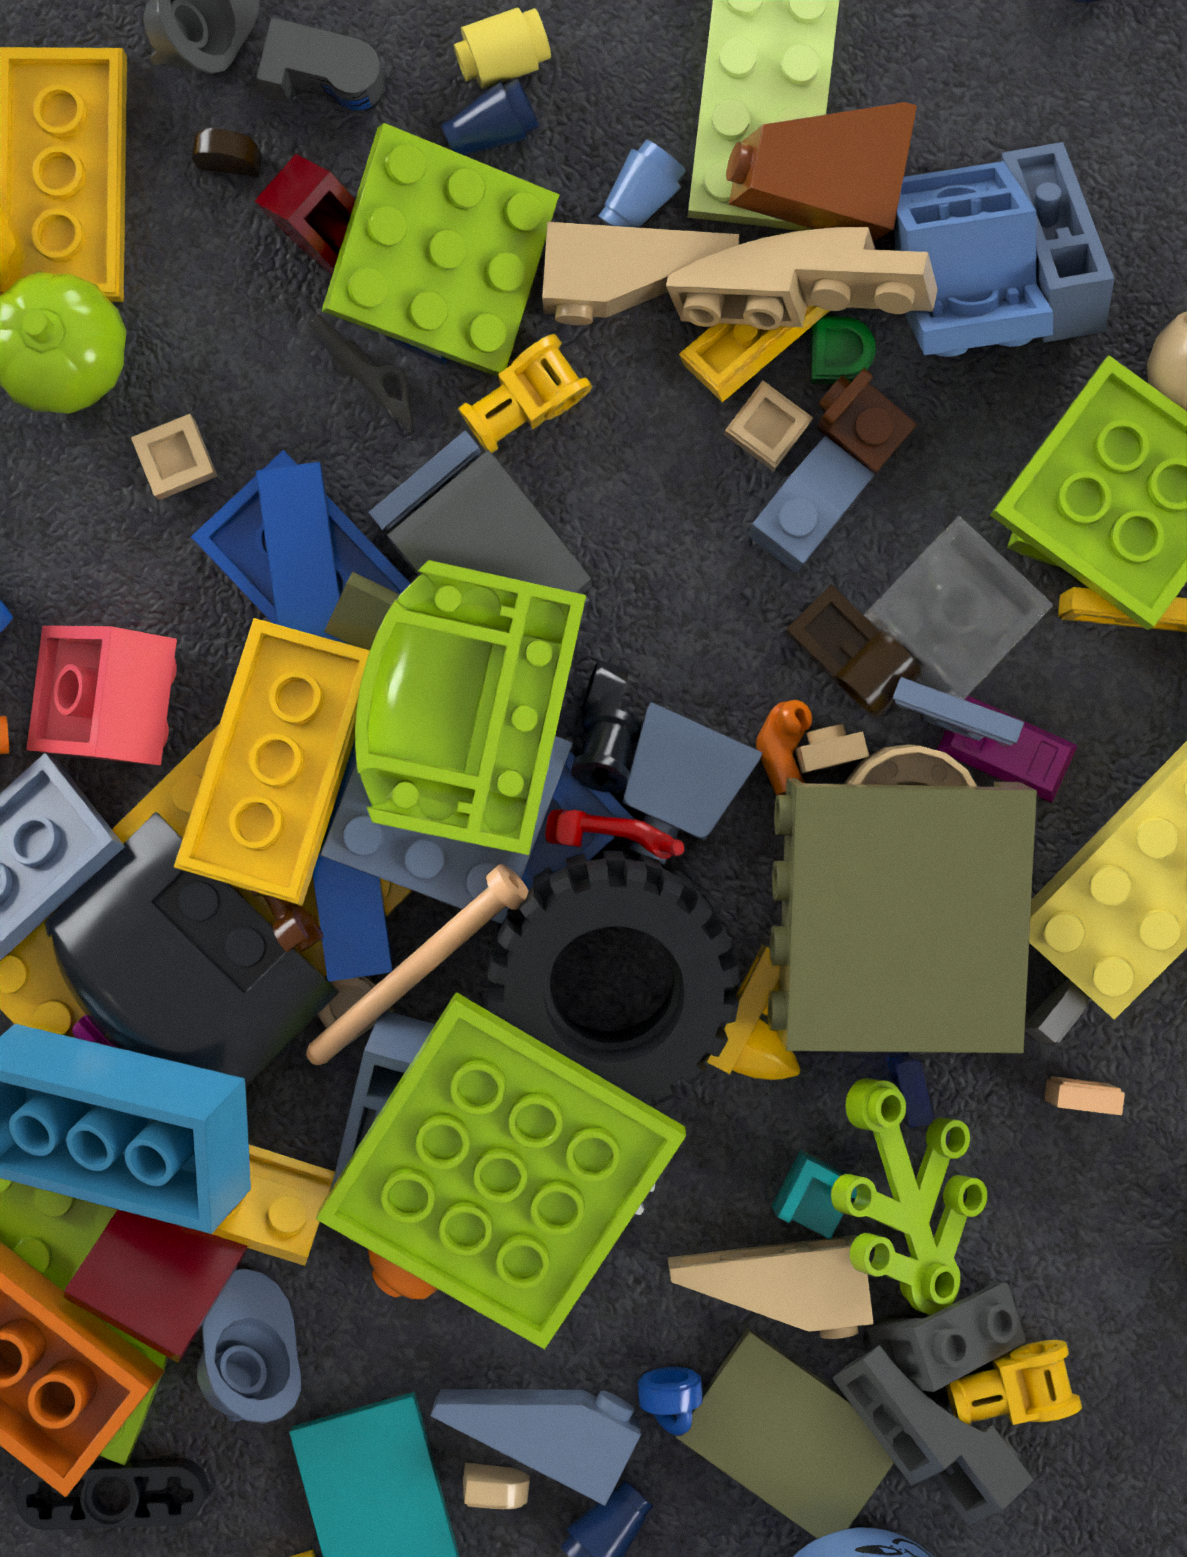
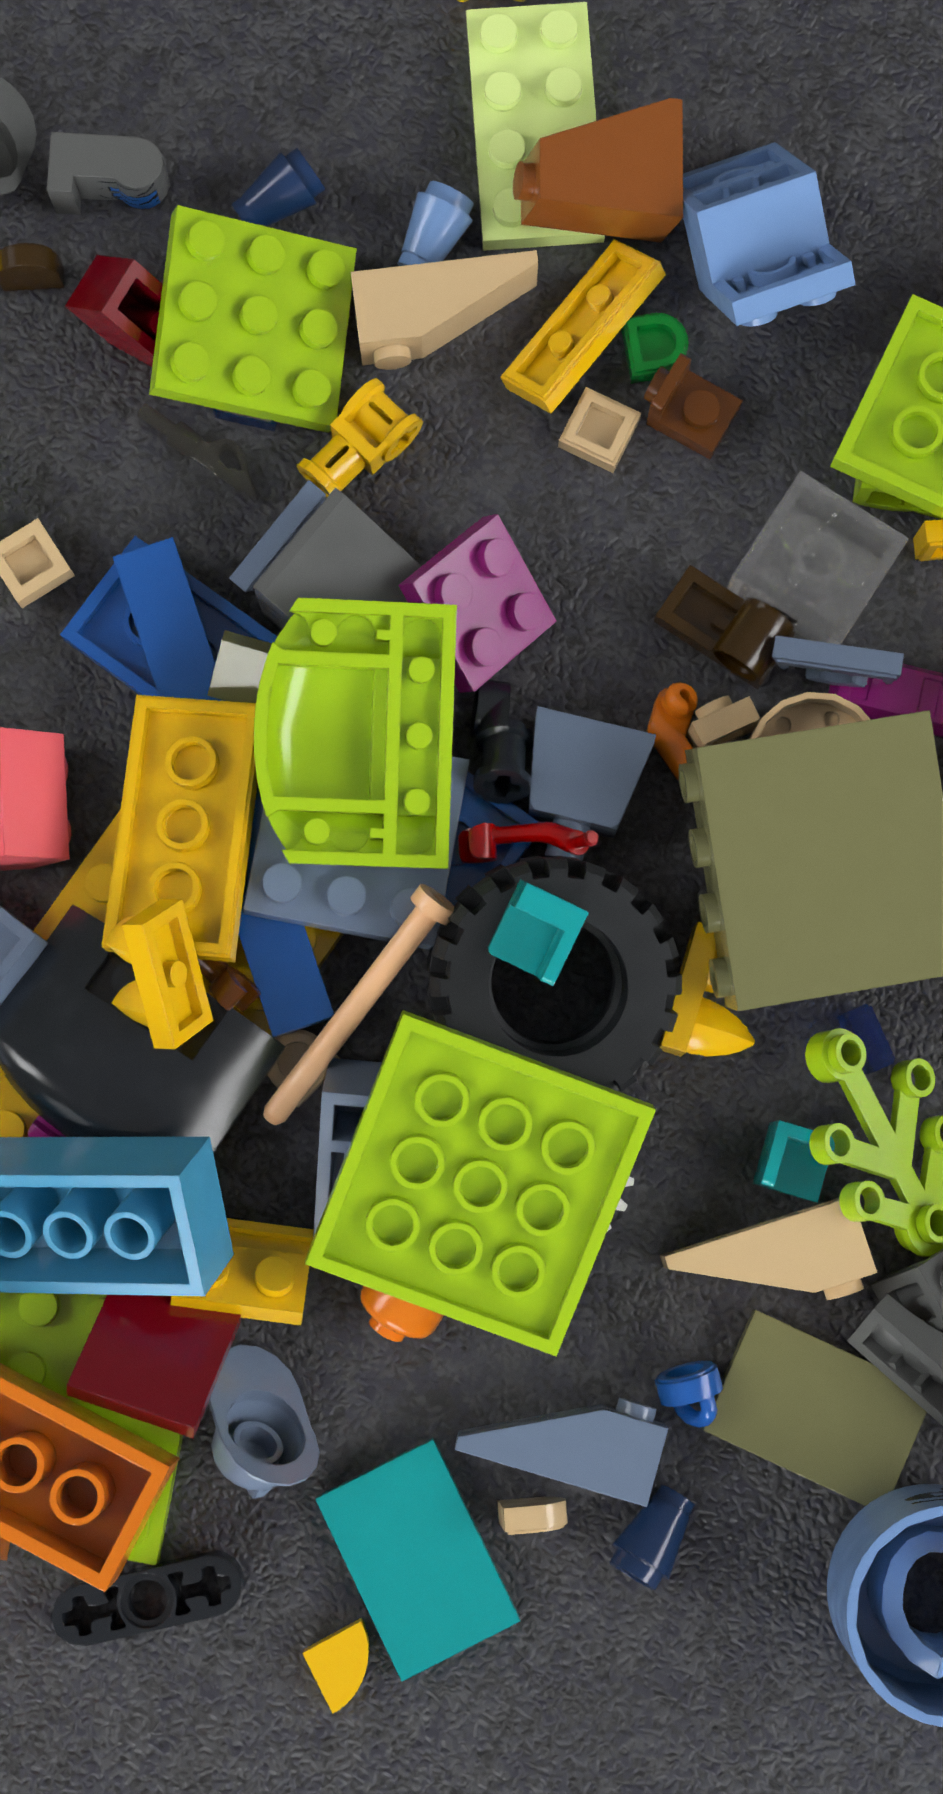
camera: 10 degrees left, 5 degrees down
(231, 909) = (168, 982): none -> yellow tile
(502, 47) = (276, 122): light yellow brick -> none
(604, 941) = (537, 931): none -> teal panel
(625, 583) = (494, 597): none -> magenta plate
(780, 275) = (586, 279): tan slope -> none
(809, 504) = (653, 496): sand blue slope -> none
(1068, 250) = (854, 207): sand blue slope -> none

